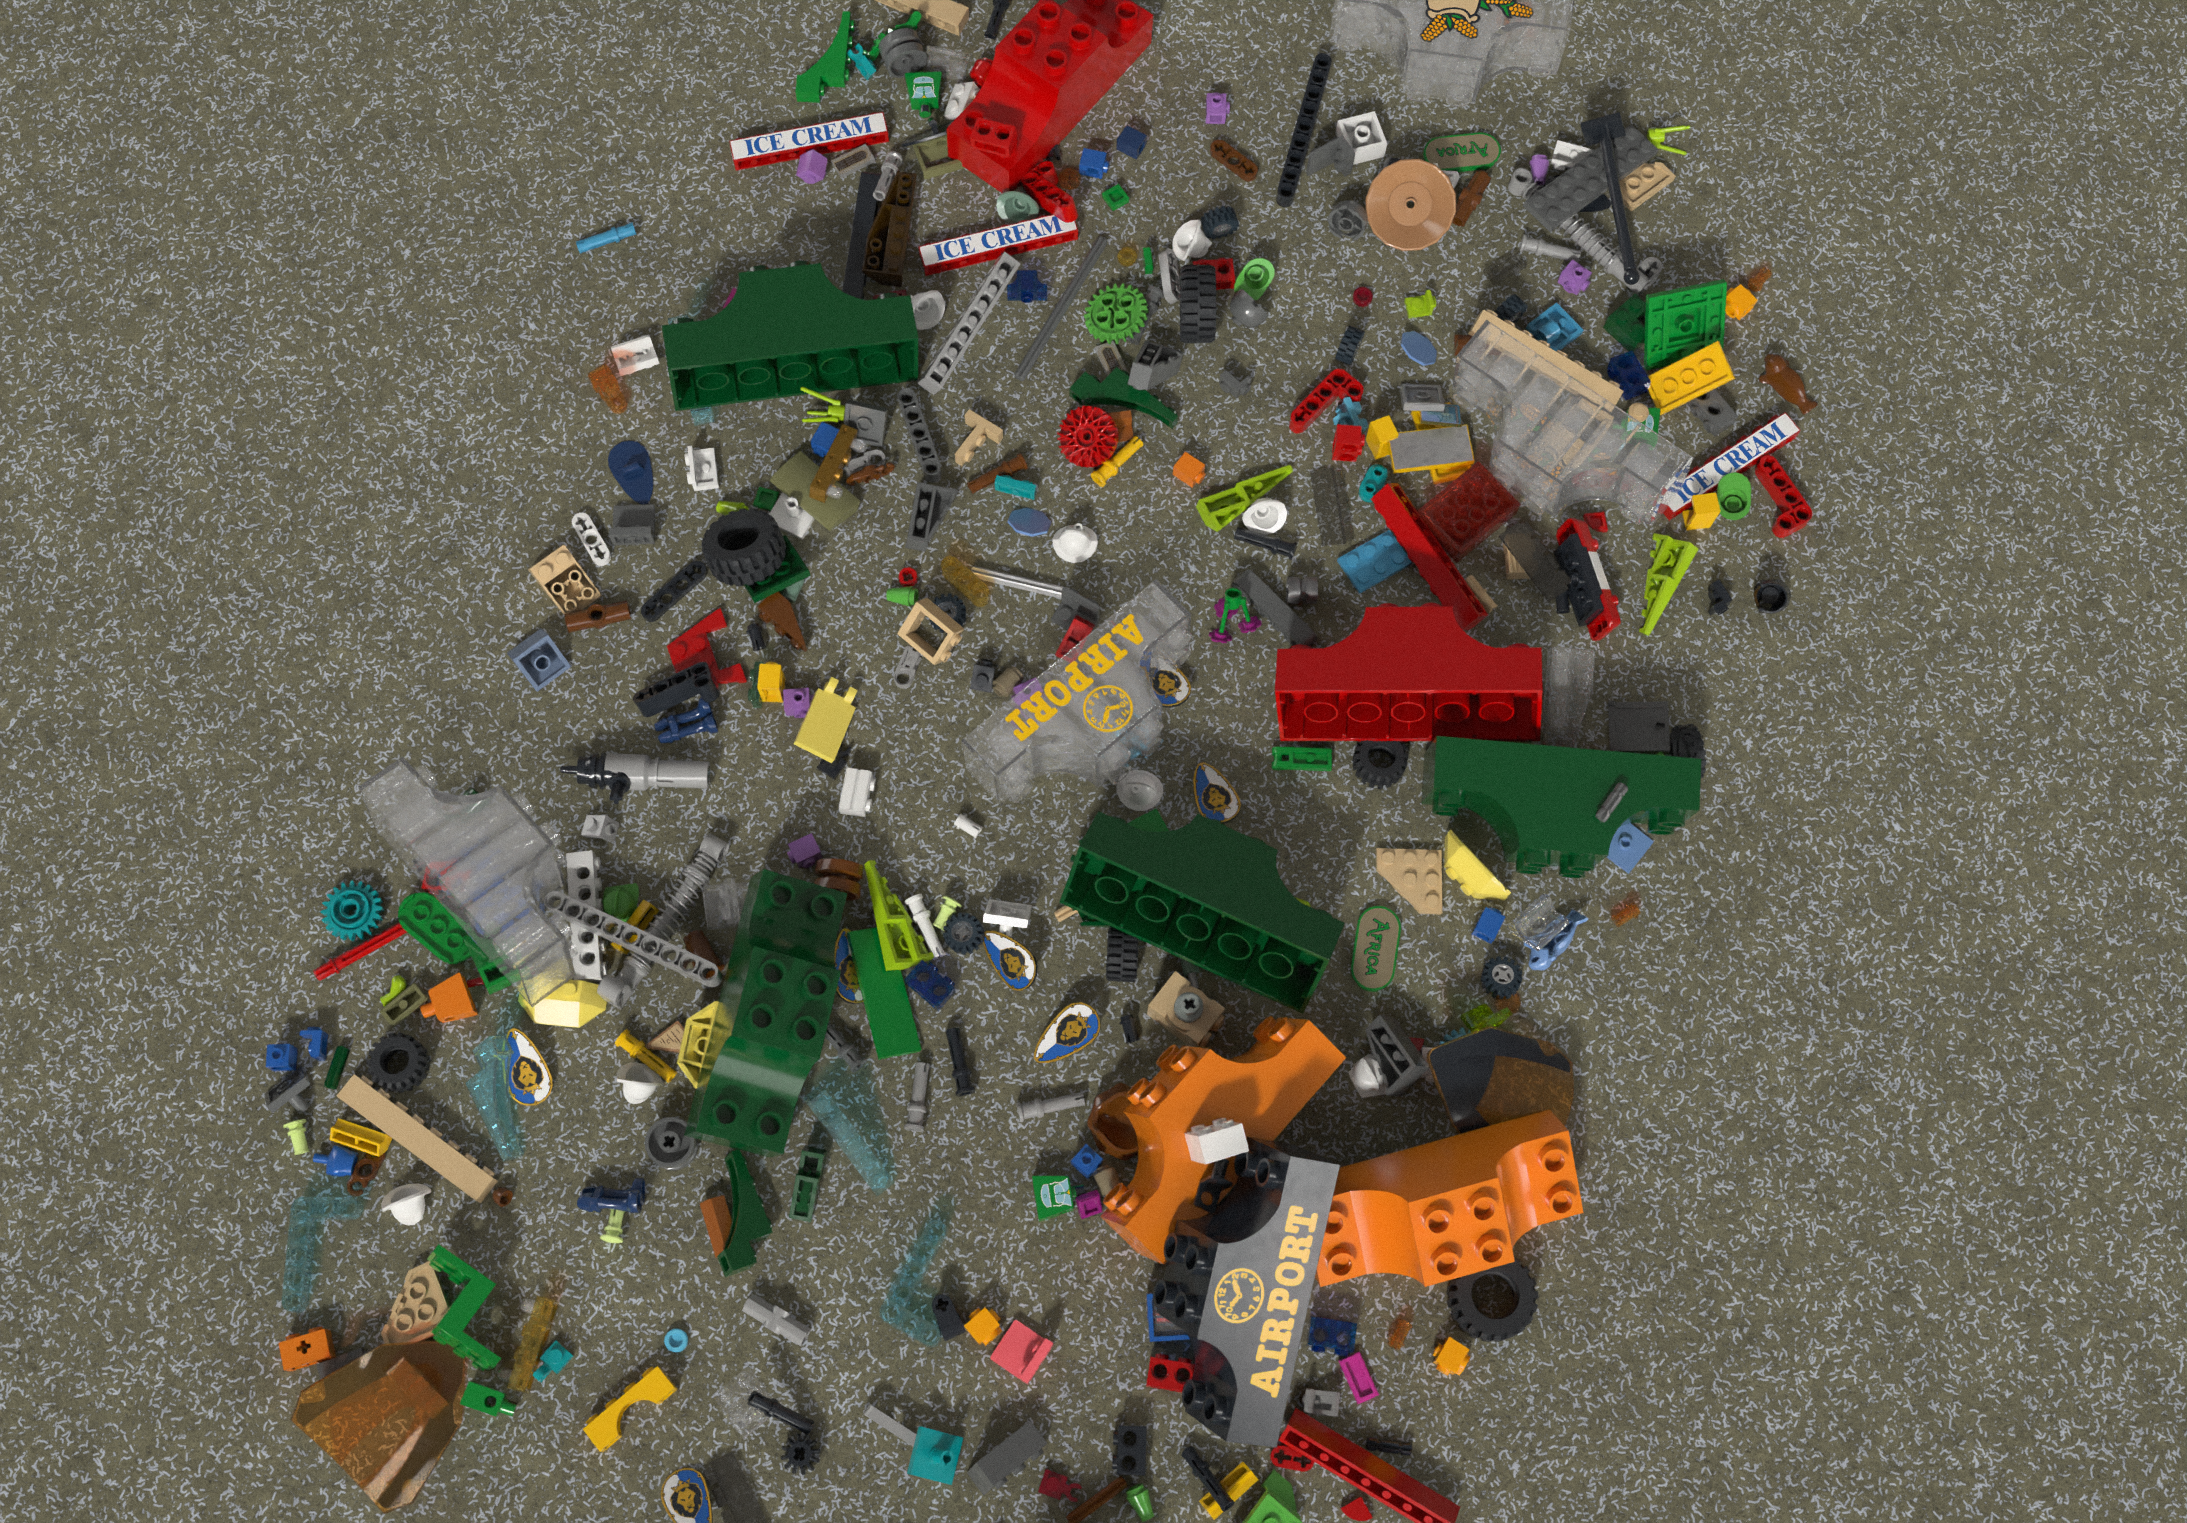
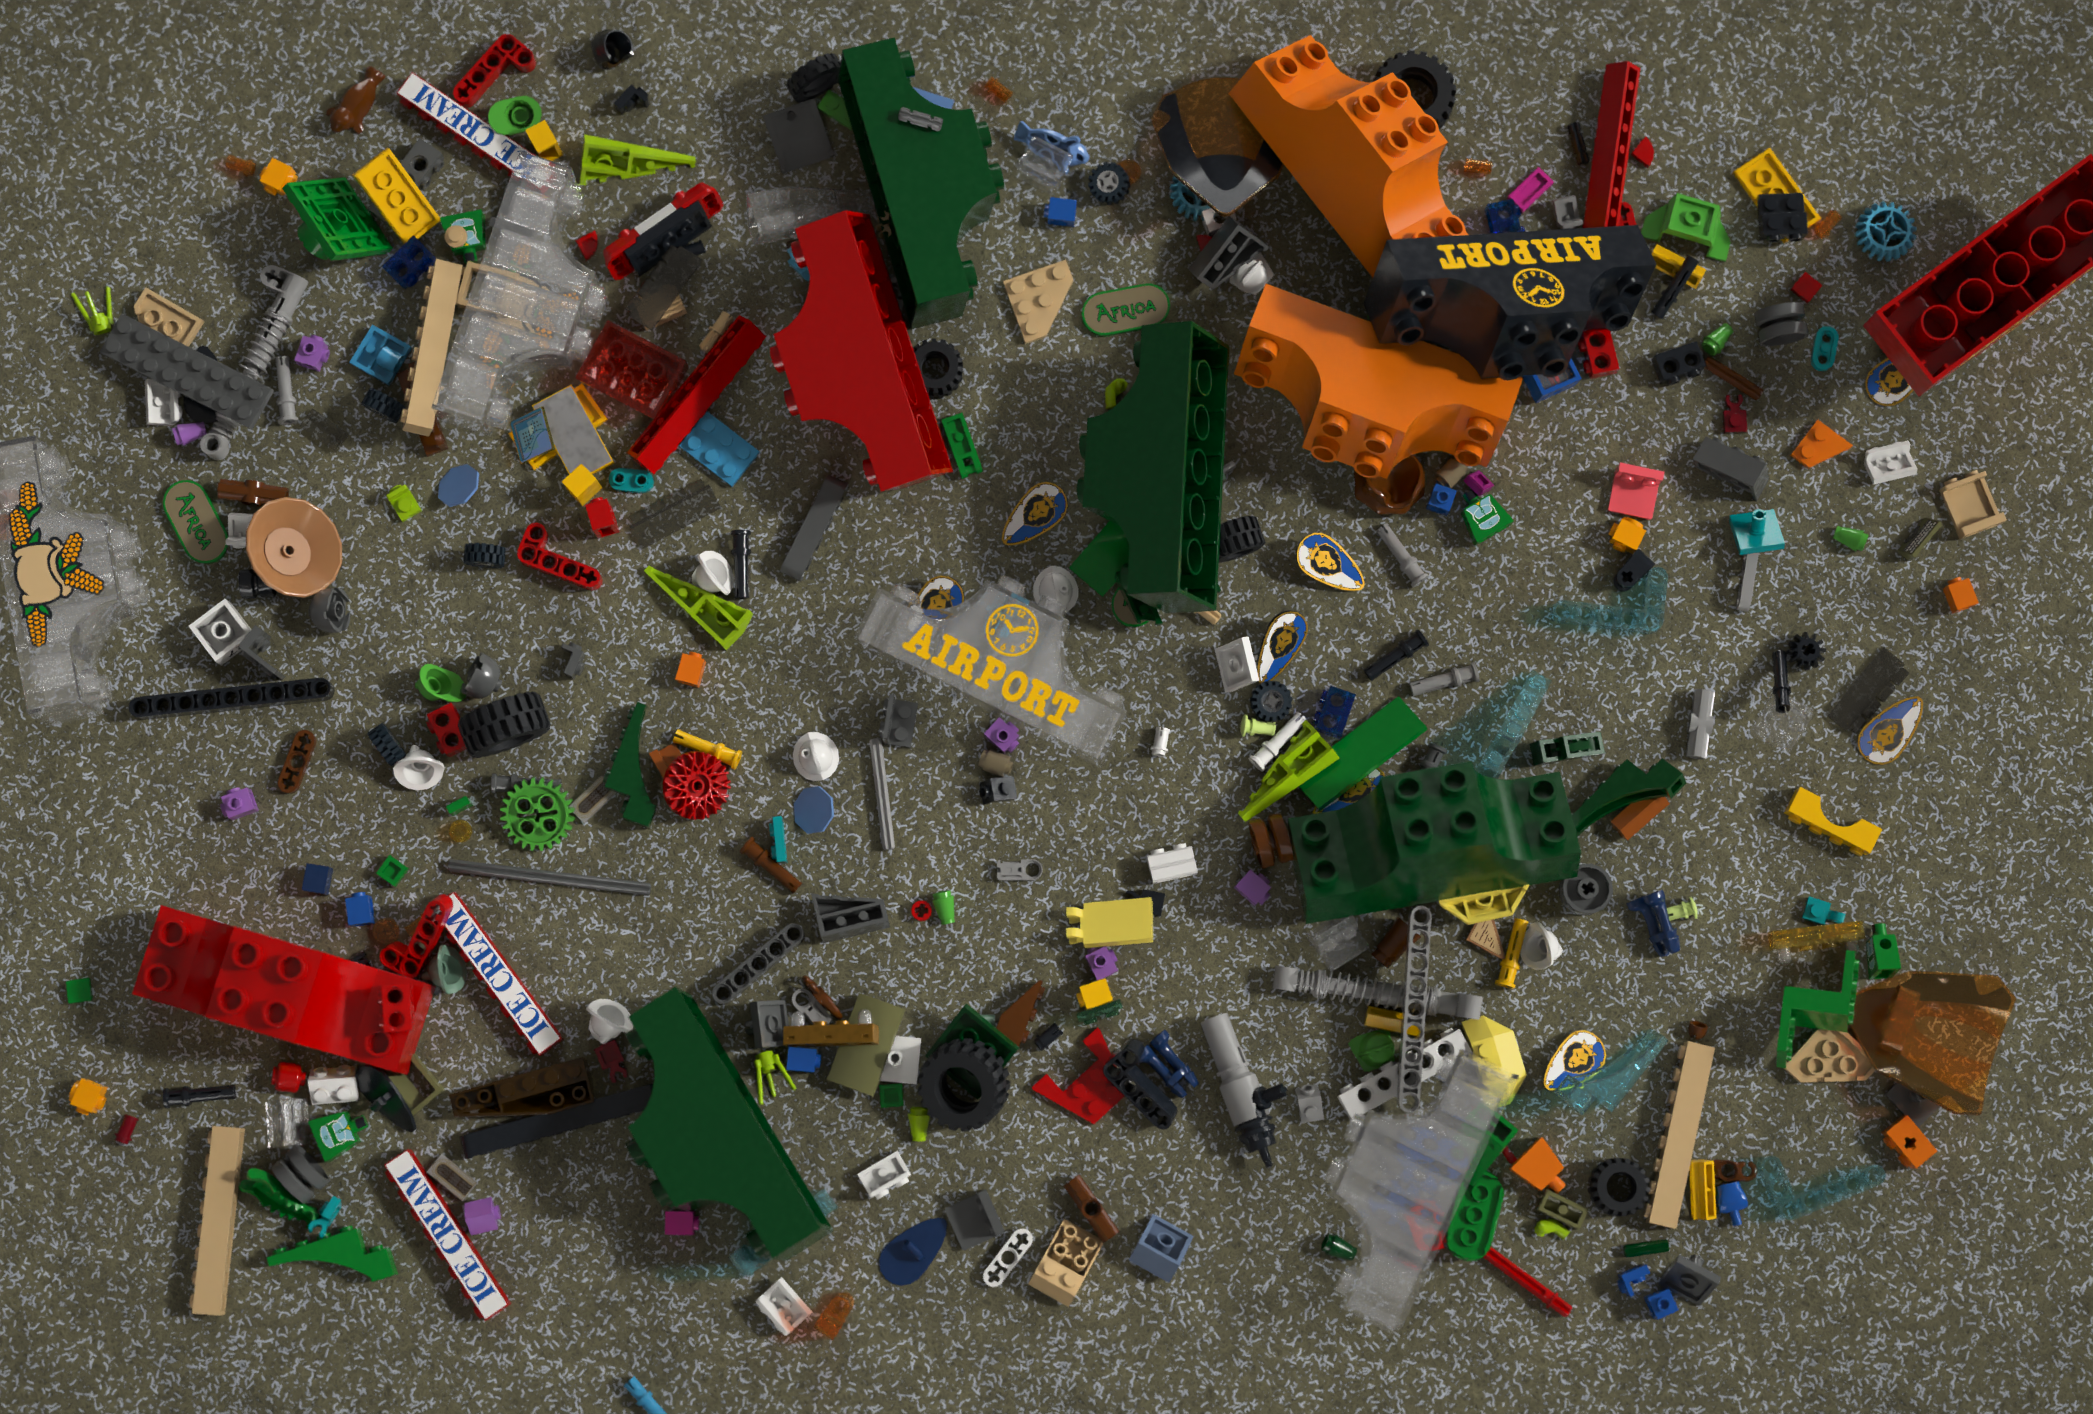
camera: 110 degrees left, 10 degrees up
(297, 1135) = (1722, 1253): yellowish green pin -> none
(362, 920) = (1477, 1308): teal gear -> none
(406, 1203) = (1740, 1115): white helmet -> none
(670, 588) = (1032, 1141): black beam -> none
(676, 1340) = (1755, 808): medium azure tile -> none
(889, 171) = (453, 1128): light grey pin -> none
(927, 608) = (963, 851): tan window -> none
(956, 609) = (940, 848): black wheel -> none
(960, 573) = (908, 838): clear yellow beam -> none
(968, 323) = (609, 963): light grey brick -> none
(981, 429) = (737, 902): tan bracket -> none
(1027, 288) = (540, 921): clear blue brick -> none
(1078, 630) = (929, 710): red brick -> none
(1129, 1028) = (1298, 509): black pin -> none
(1154, 365) = (589, 749): dark grey wedge -> none
(1170, 275) = (468, 775): light grey beam -> none
(1186, 1011) = (1264, 459): tan piece -> none
(1213, 1185) = (1437, 357): black bracket -> none
(1216, 1141) = (1403, 363): white brick -> none
(1226, 608) = (829, 572): plant -> none
(1301, 590) = (782, 506): flat silver wheel -> none
(1347, 414) = (567, 529): medium azure hips -> none
(1362, 296) = (415, 566): dark red tile -> none
(1421, 397) = (517, 462): light grey tile -> none
(1451, 1357) = (1479, 114): light orange brick -> none
(1470, 871) = (1014, 247): light yellow wedge -> none
(1483, 1017) = (1159, 184): clear neon green panel -> none
(1602, 131) = (130, 371): black piece -> none
(1625, 323) = (351, 284): dark green brick -> none

